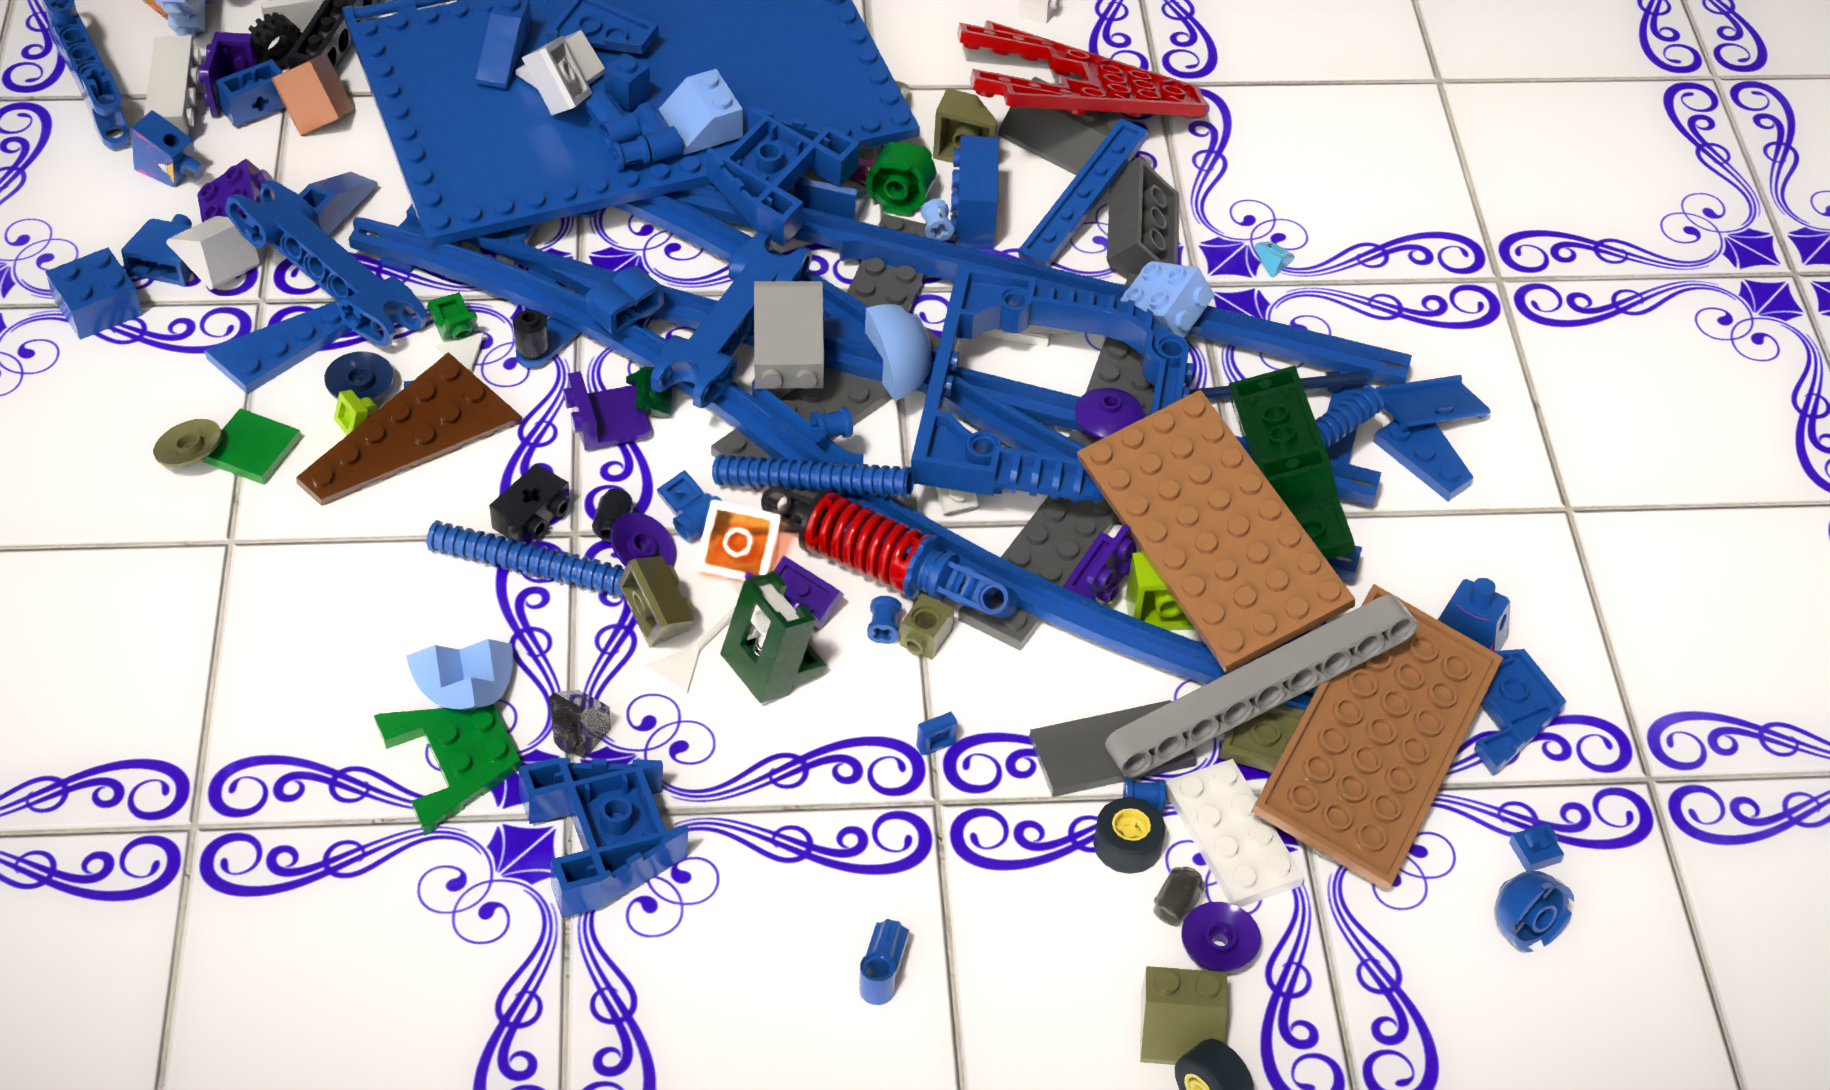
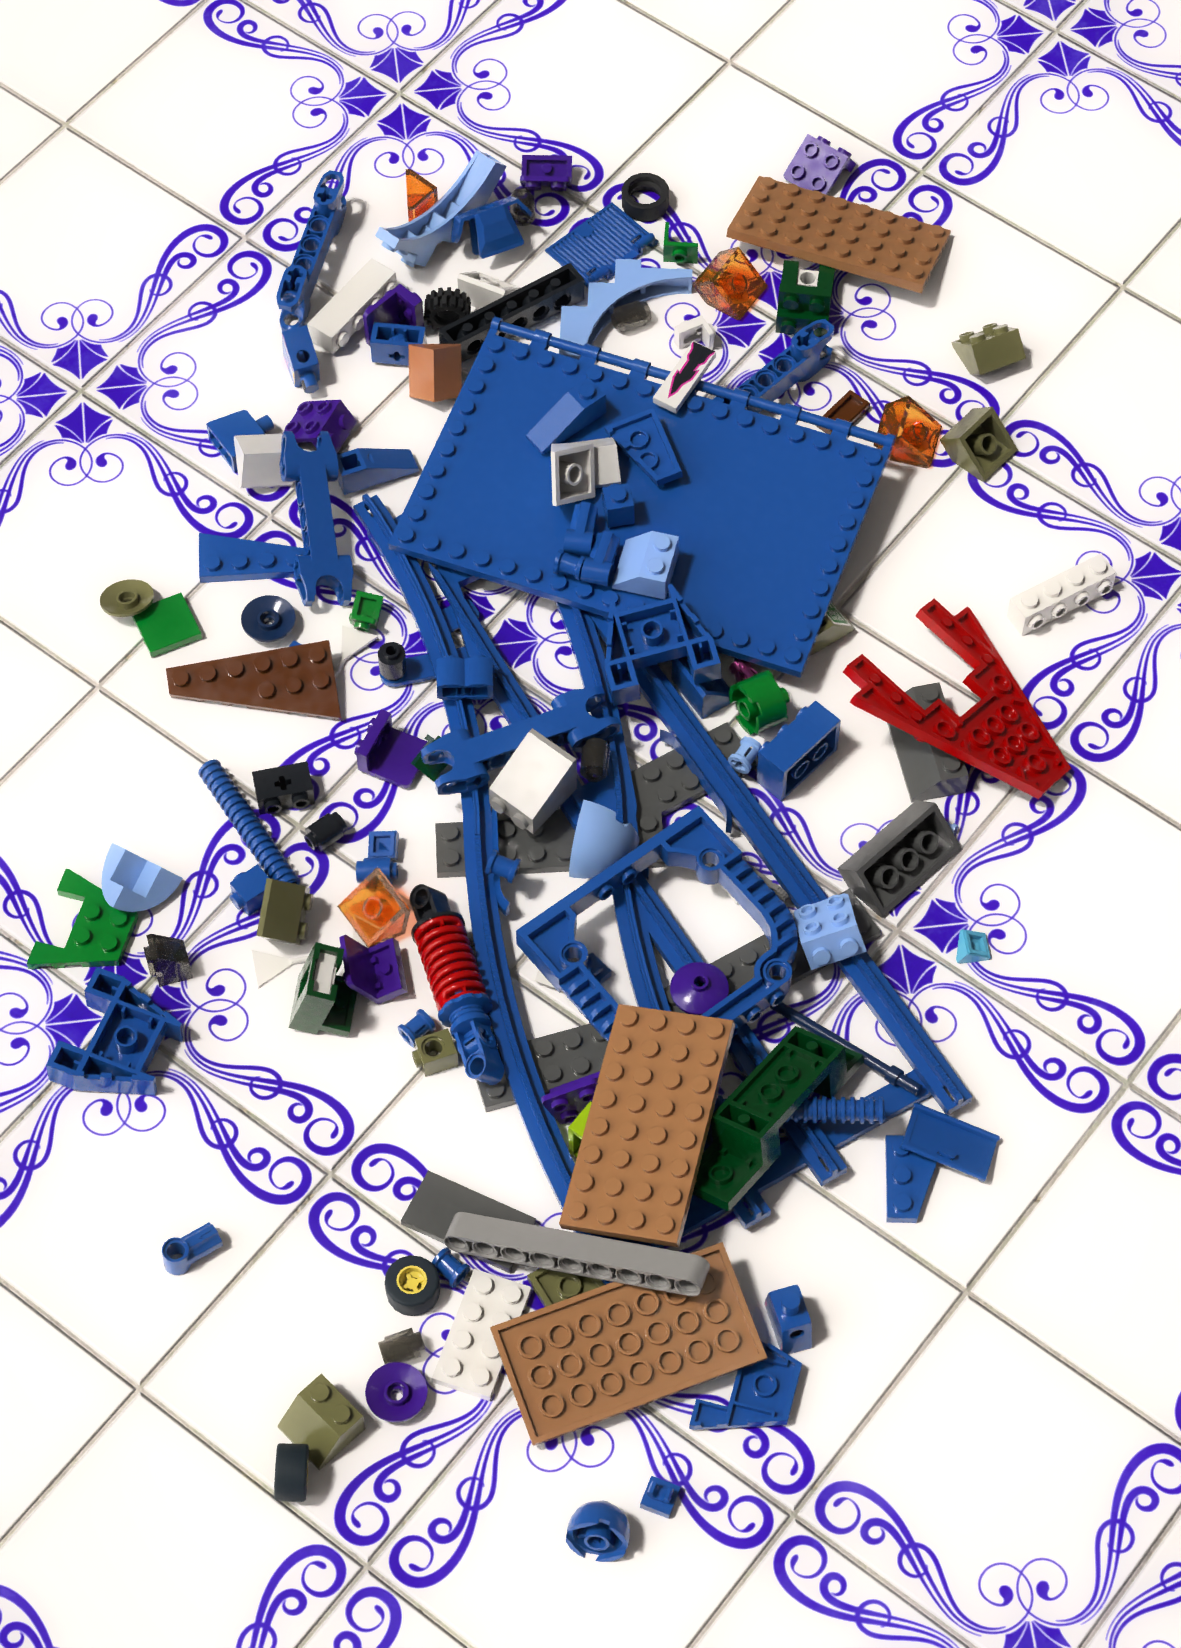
camera: 45 degrees right, 10 degrees up
(94, 293) = (168, 444): blue brick -> none
(352, 411) = (242, 644): lime tile -> none
(594, 608) = (248, 889): none -> blue brick
(641, 536) = (334, 863): dark purple dish -> none
(813, 476) = (461, 895): blue piece -> none
(831, 293) = (595, 760): none -> clear smoke brick
(936, 733) = (367, 1129): blue tile -> none
(960, 115) = (836, 691): olive slope -> none
(1083, 193) = (873, 803): blue plate -> none

